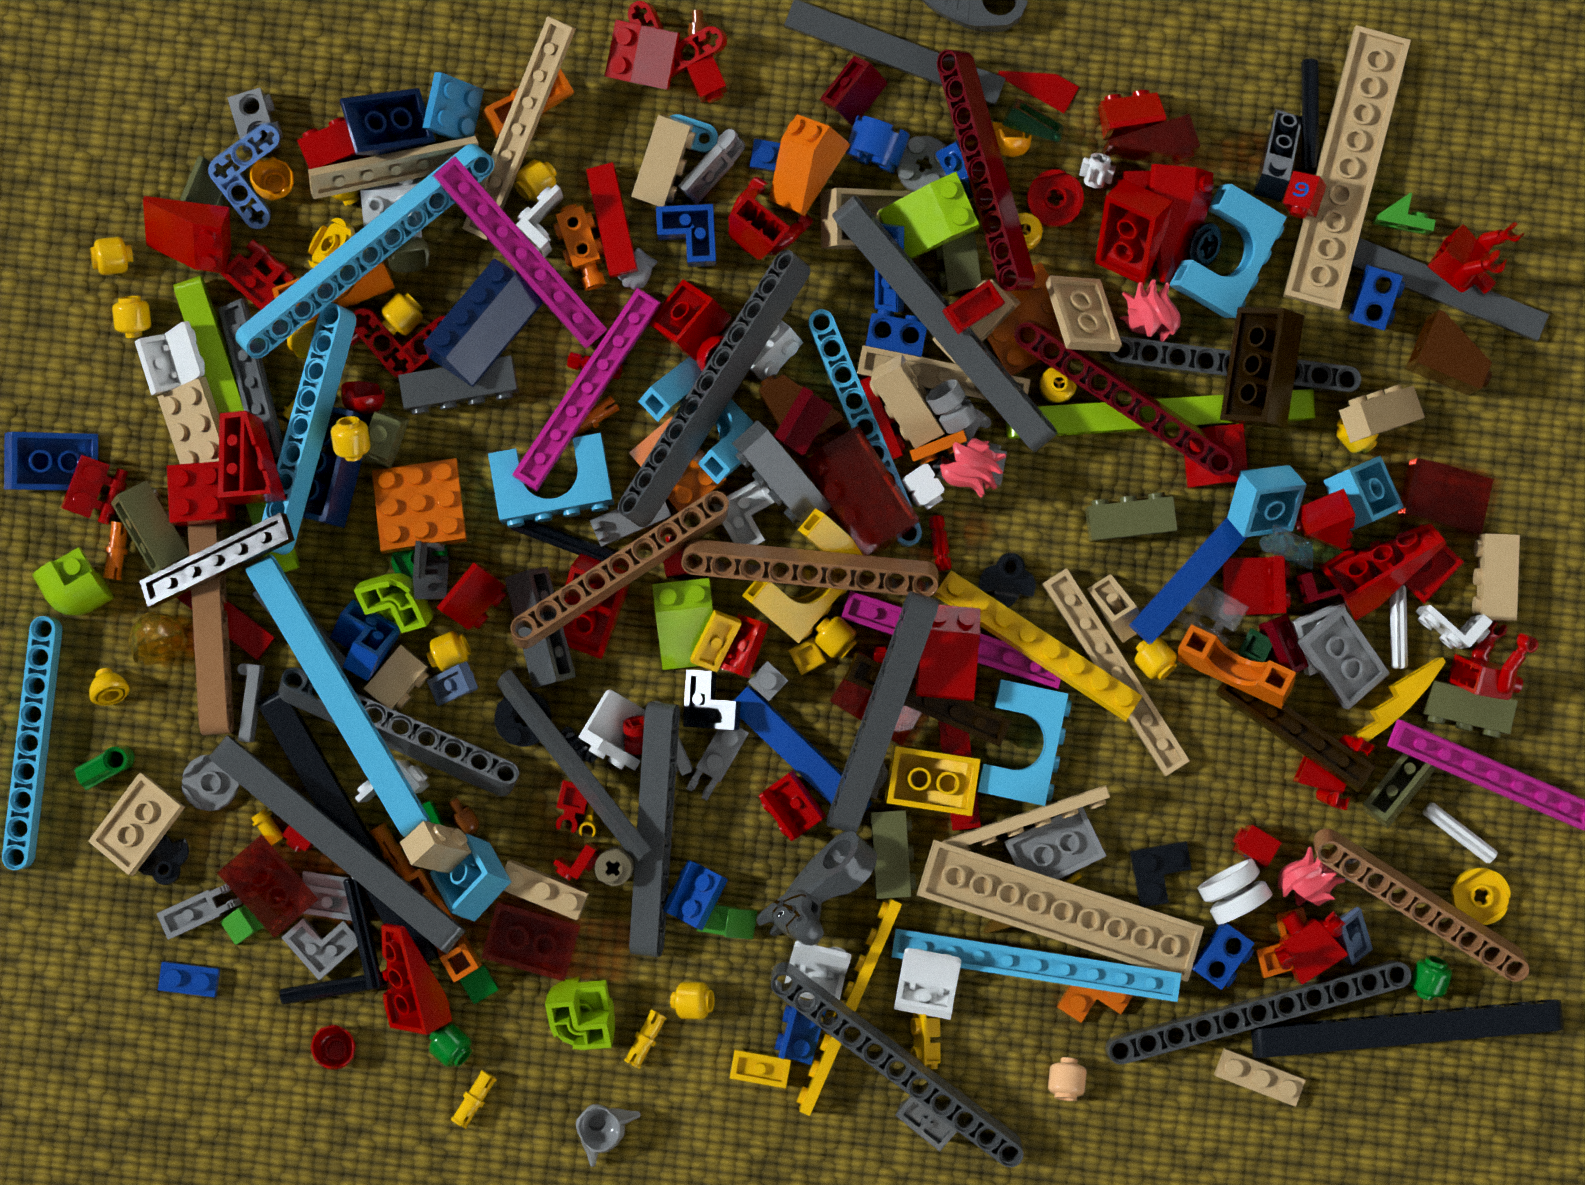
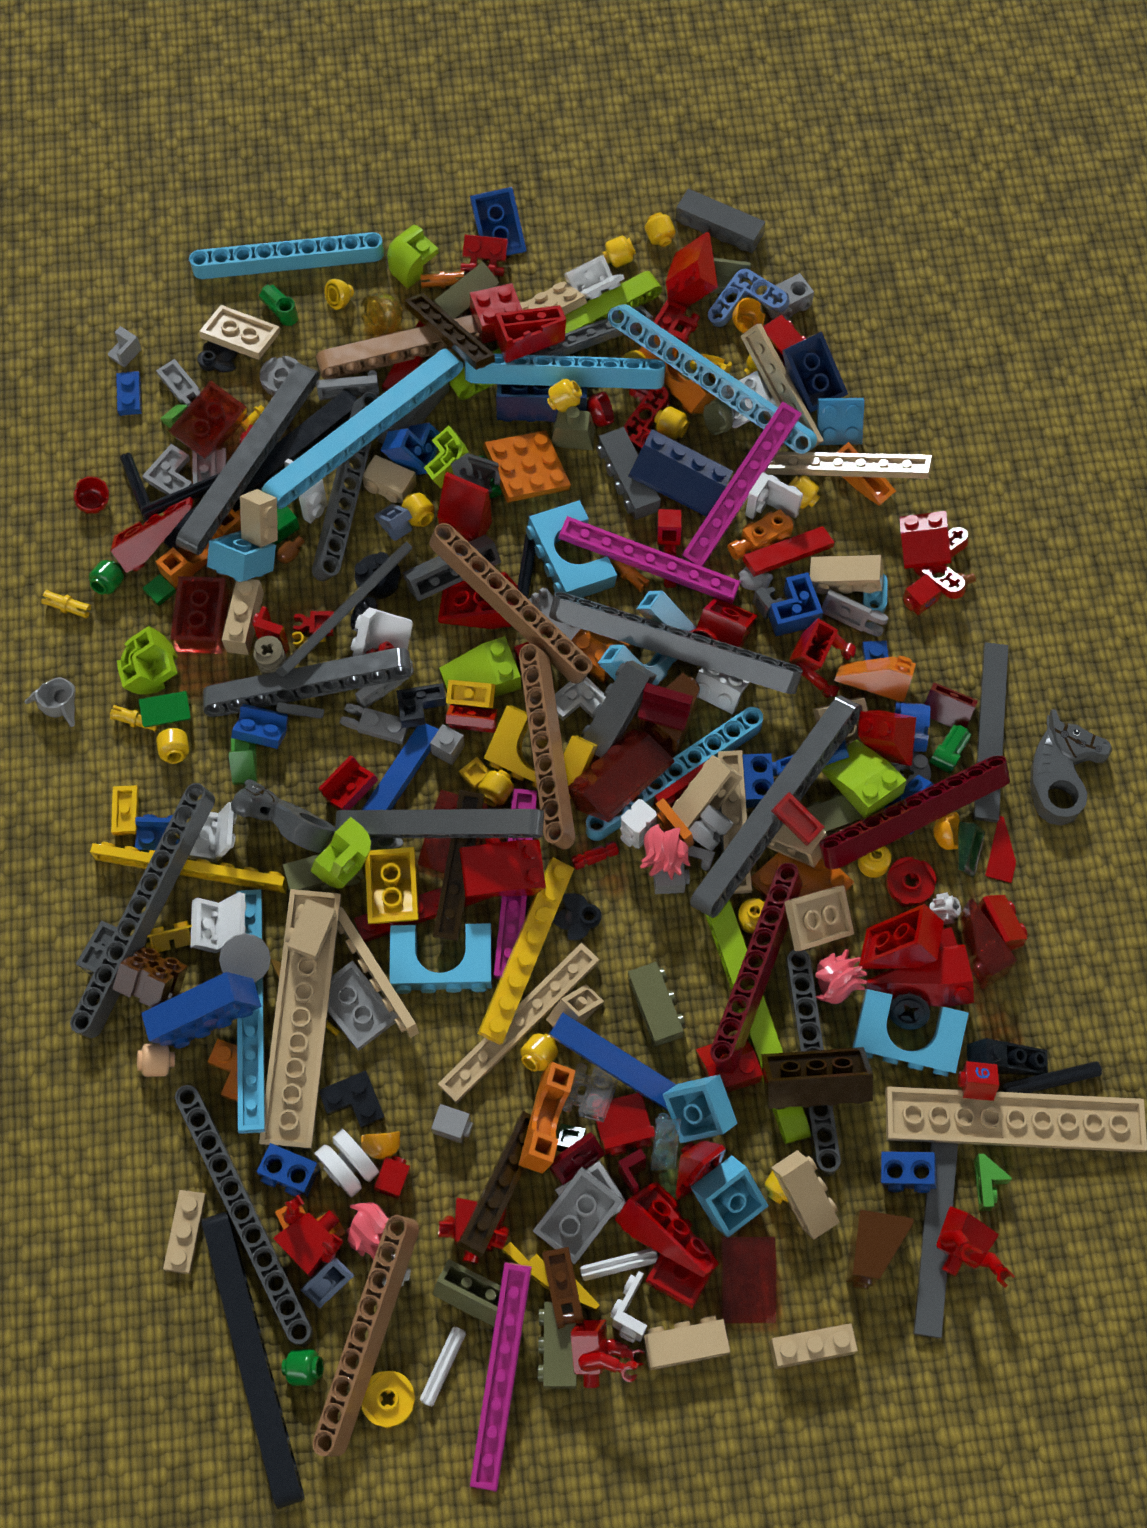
camera: 80 degrees right, 20 degrees down
(116, 176) = (720, 221): none -> dark grey brick
(121, 974) = (126, 348): none -> light grey panel
(546, 354) = (669, 527): none -> red brick
(645, 1001) = (165, 709): none -> green panel
(672, 267) = (763, 600): none -> dark grey tile
(683, 844) = (299, 710): none -> dark grey tile
(890, 173) = (888, 735): none -> red slope
(893, 827) = (344, 855): none -> lime brick
(914, 111) = (948, 754): none -> green piece
(974, 880) = (311, 929): none -> tan brick
(978, 1070) = (150, 977): none -> reddish brown brick
(985, 961) = (245, 956): none -> light grey tile
(1037, 1018) = (201, 1010): none -> blue brick
(1212, 769) = (452, 1124): none -> light grey brick
(1218, 851) = (380, 1145): none -> light orange hair
(1418, 691) = (562, 1286): none -> reddish brown plate
(1529, 448) = (813, 1346): none -> tan brick

